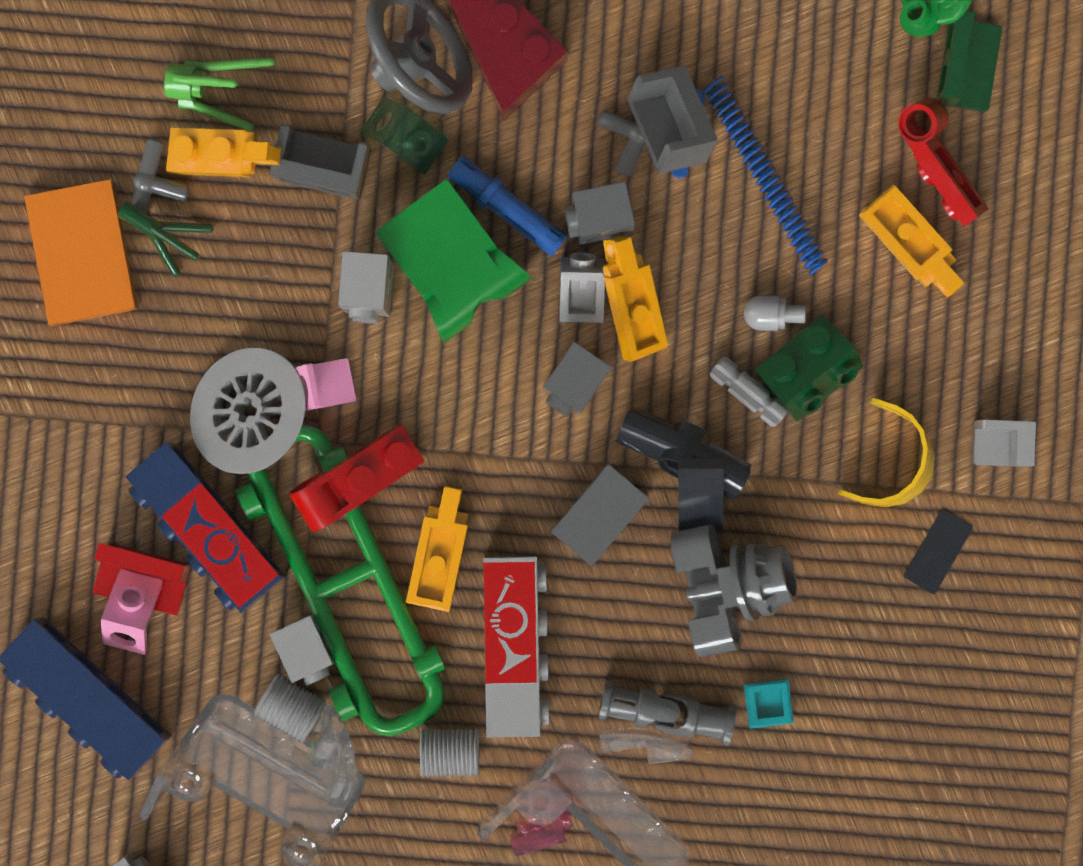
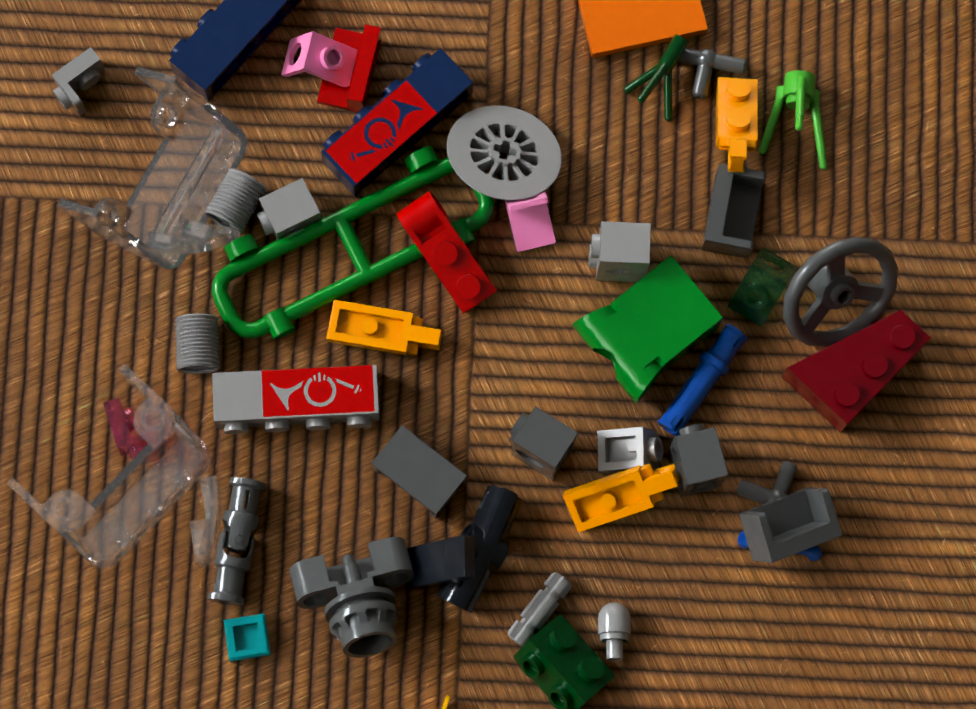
camera: 85 degrees right, 10 degrees down
(762, 175) = (742, 613): blue piece -> none

